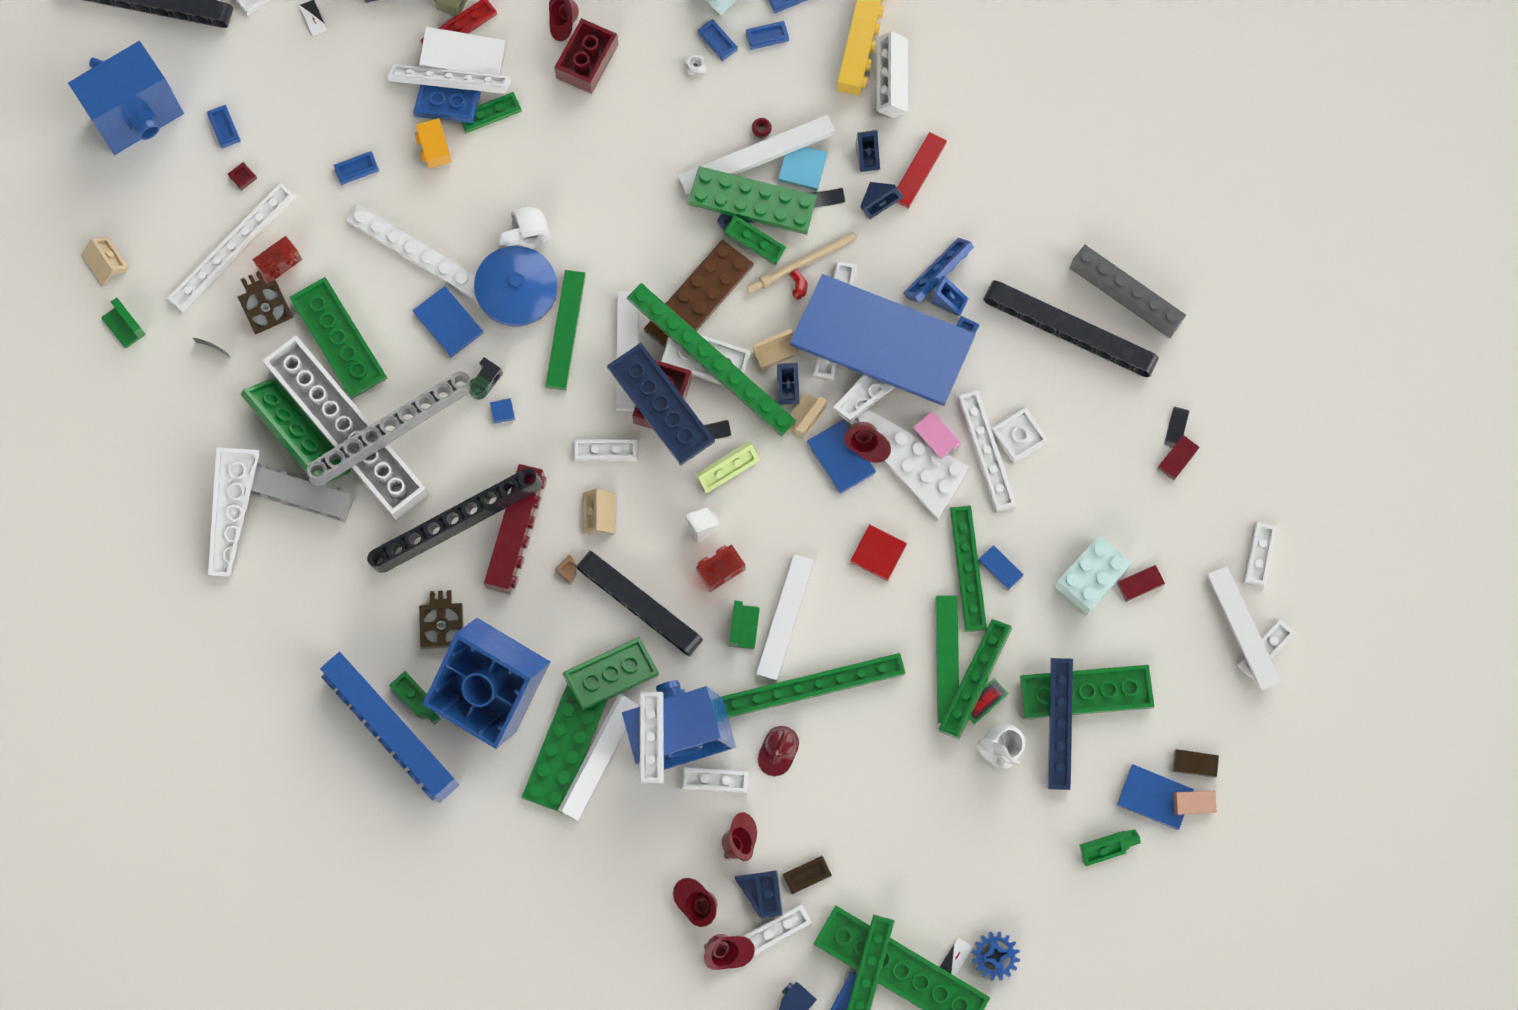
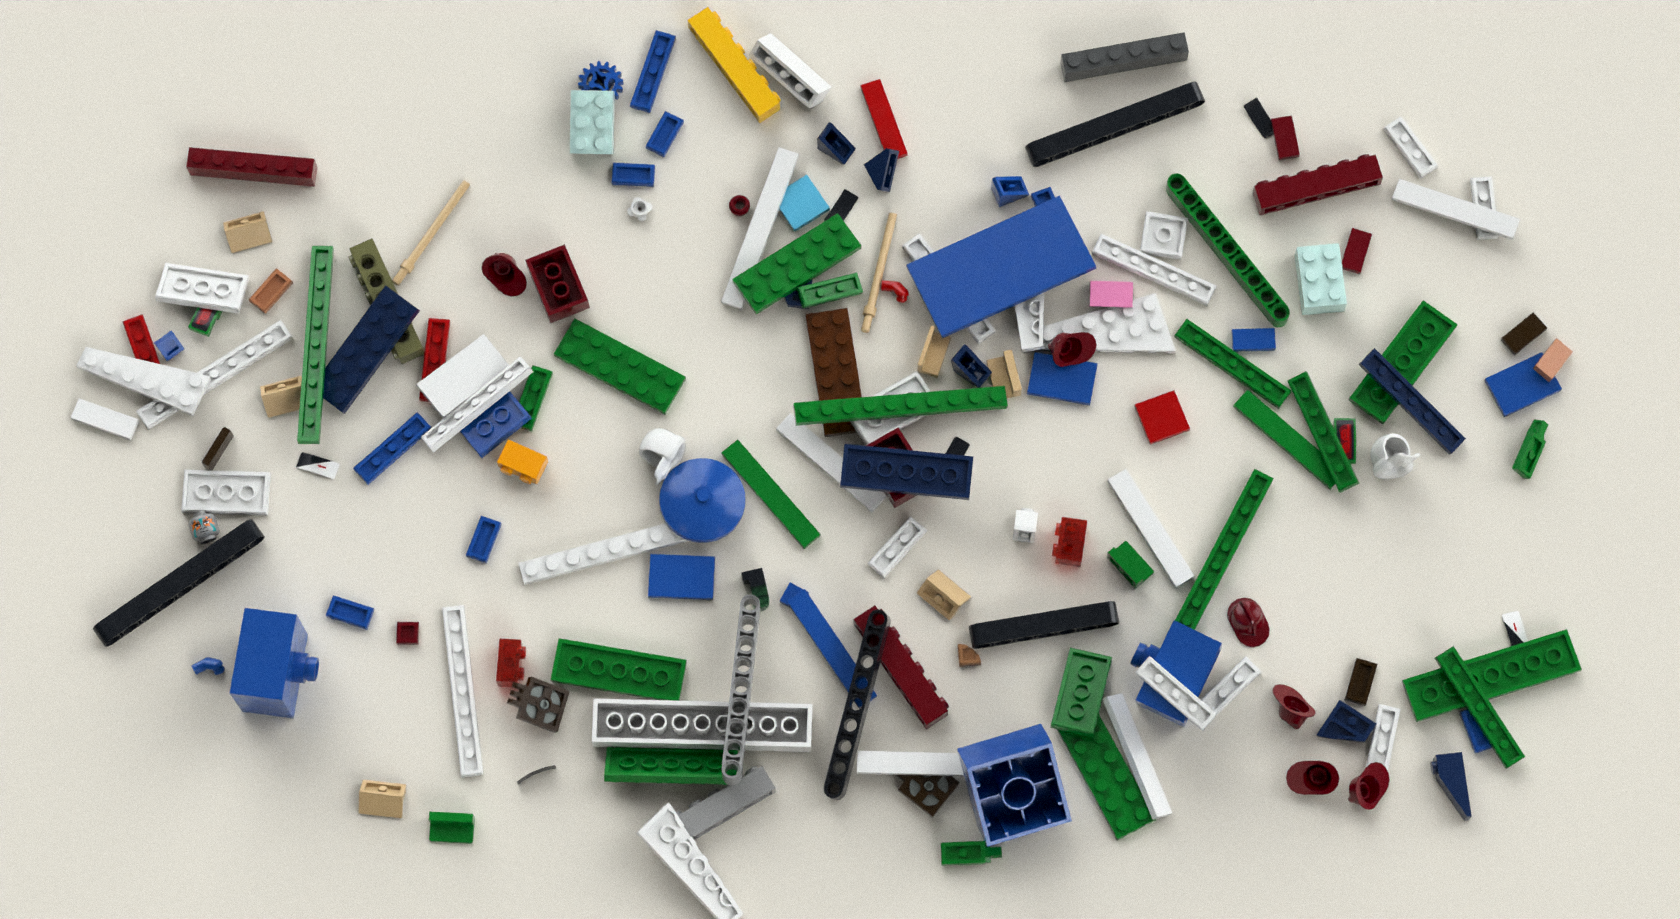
camera: 45 degrees left, 0 degrees up
(368, 53) = (392, 448): none -> blue tile
(386, 723) = (978, 889): blue brick -> none
(440, 590) = (909, 763): none -> white tile
(490, 455) = (826, 641): none -> blue tile
(567, 150) = (619, 366): none -> green plate
(727, 467) = (995, 468): yellowish green plate -> none
(940, 267) = (980, 177): blue plate -> none
(997, 966) = (1532, 596): blue gear -> none
(1047, 498) = (1228, 259): none -> green beam
(1164, 510) = (1317, 184): none -> dark red brick

